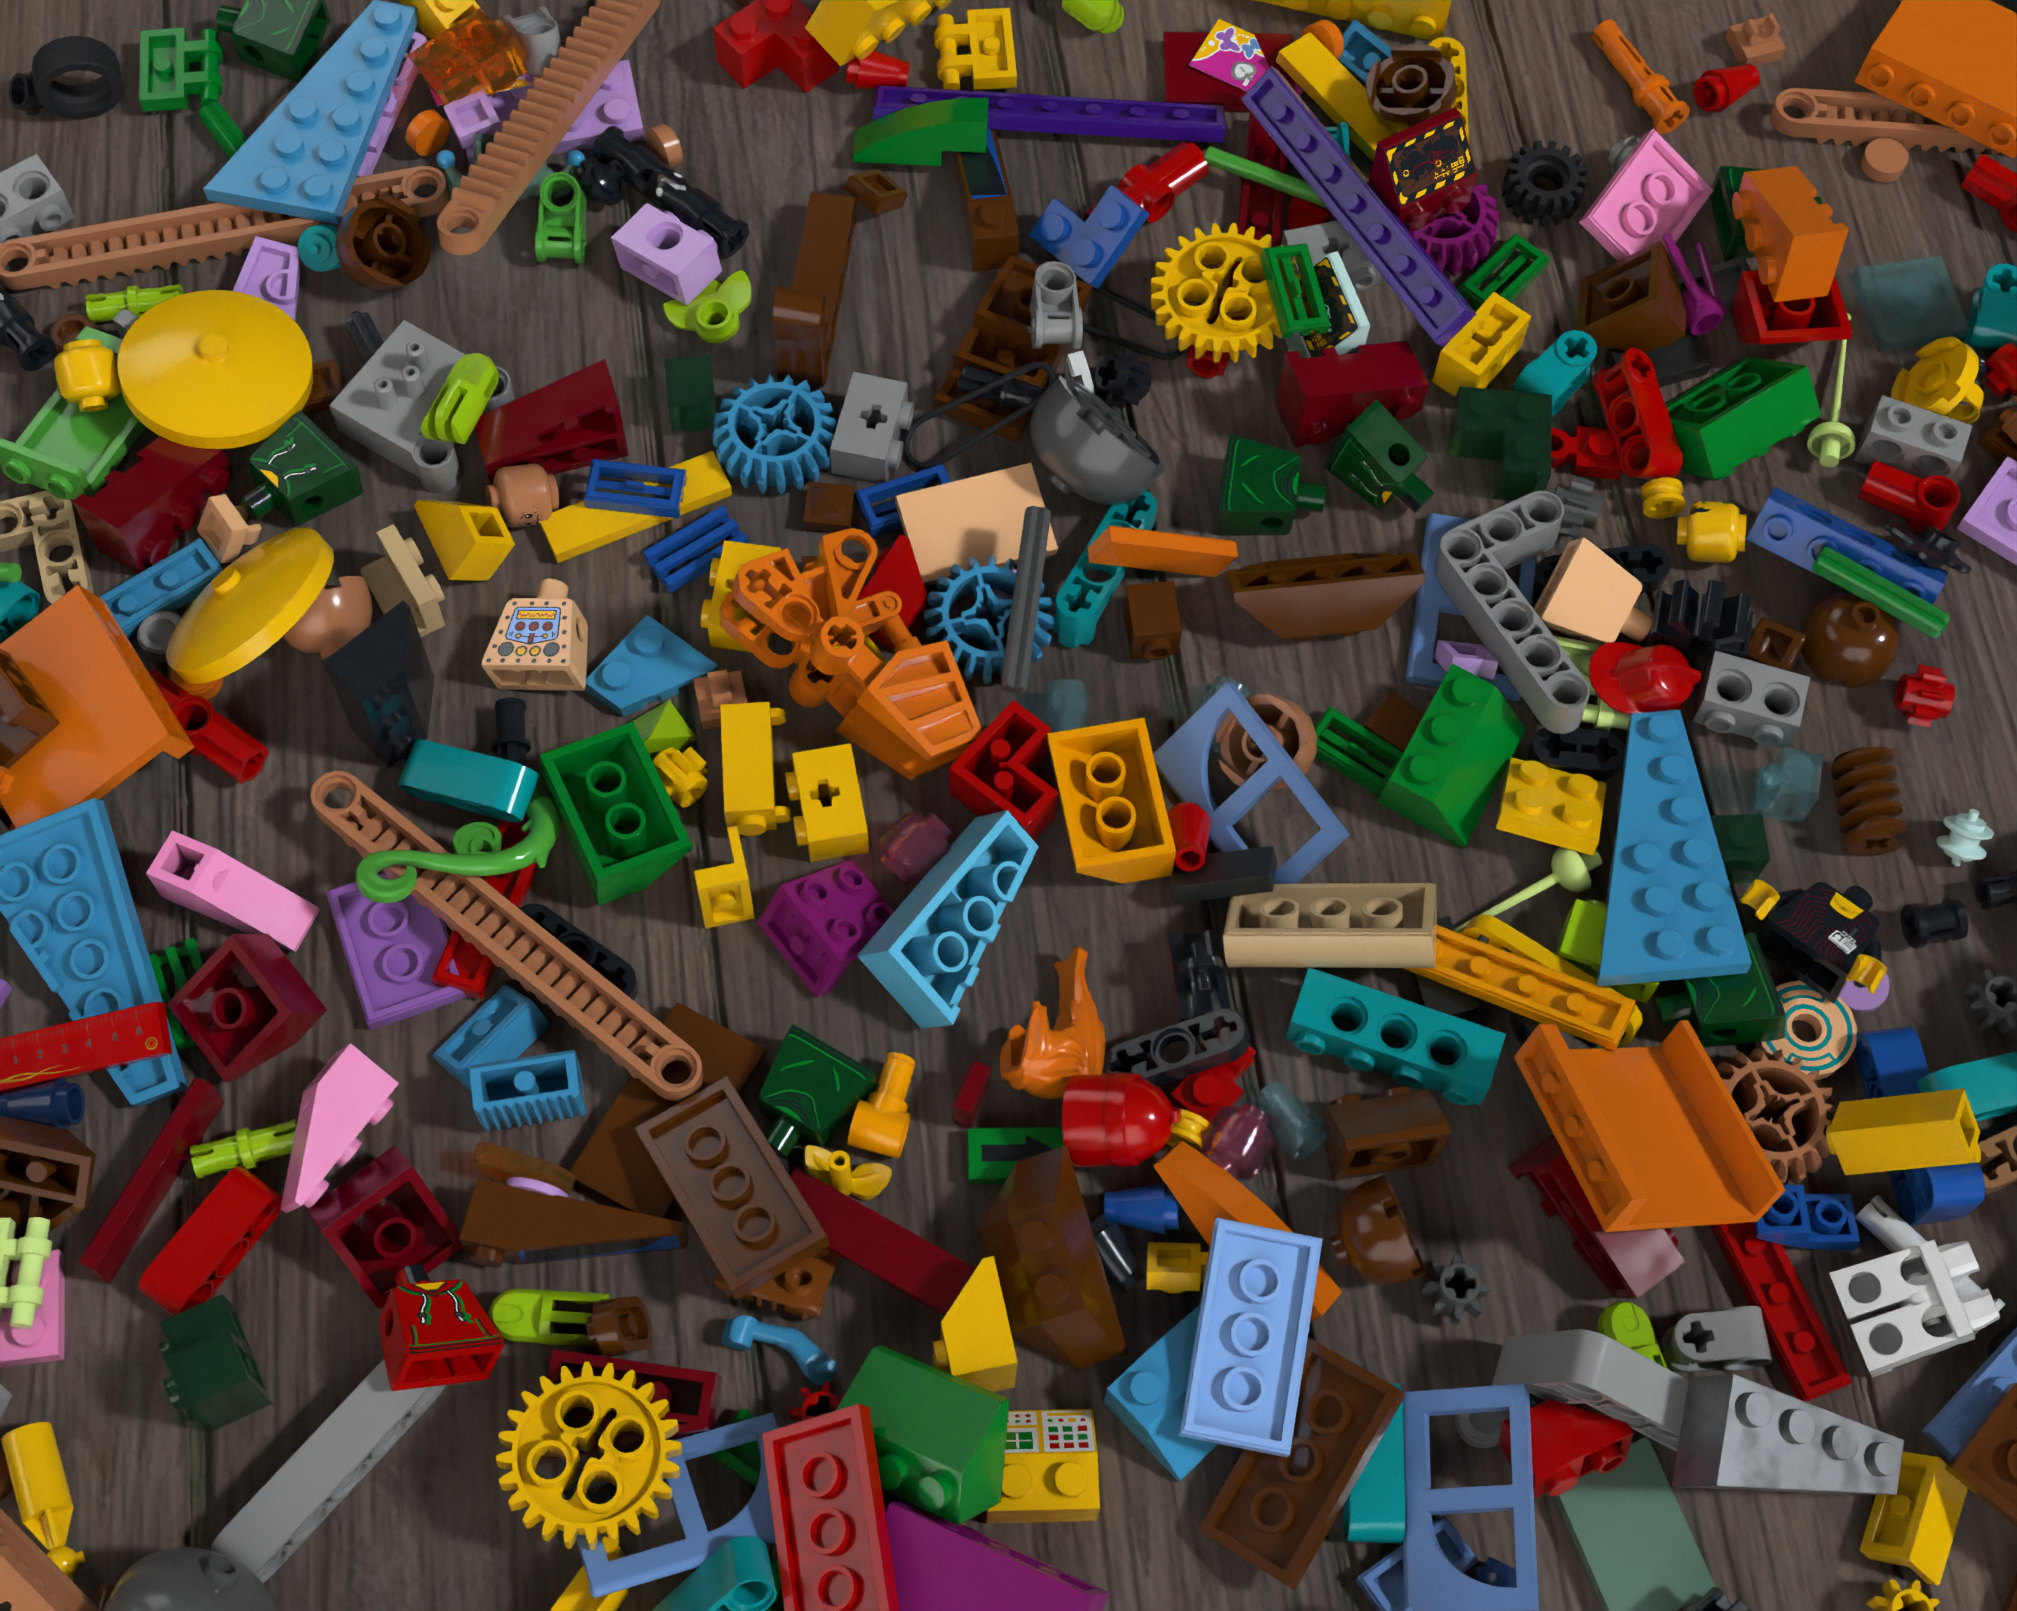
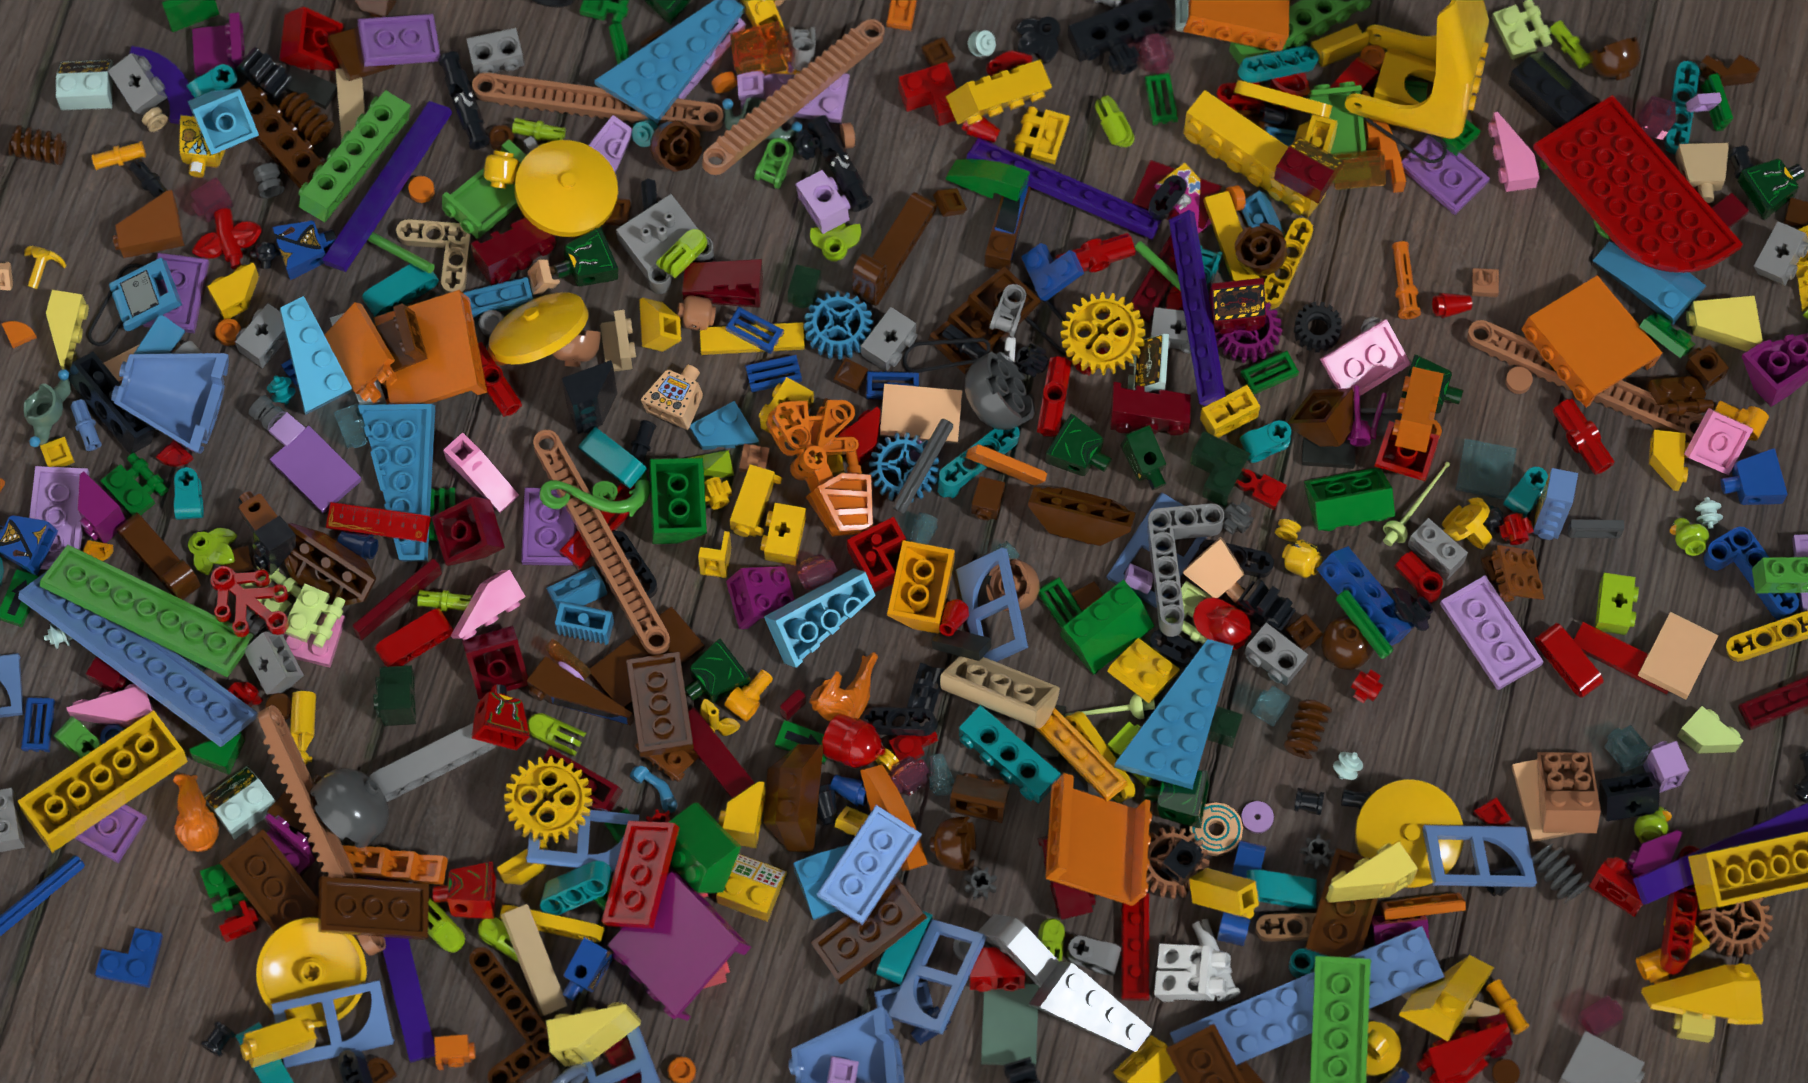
camera: 25 degrees right, 5 degrees up
(620, 1326) = (584, 749): reddish brown plate -> none
(1192, 443) = (1056, 382): none -> red piece
(1215, 70) = (1171, 200): none -> black beam
(1287, 324) = (1125, 346): green tile -> none
(1638, 417) = (1294, 482): red piece -> none
(1788, 1121) = (1180, 872): none -> black brick
(1810, 1221) = (1165, 917): blue slope -> none
(1819, 935) = (1243, 784): torso -> none

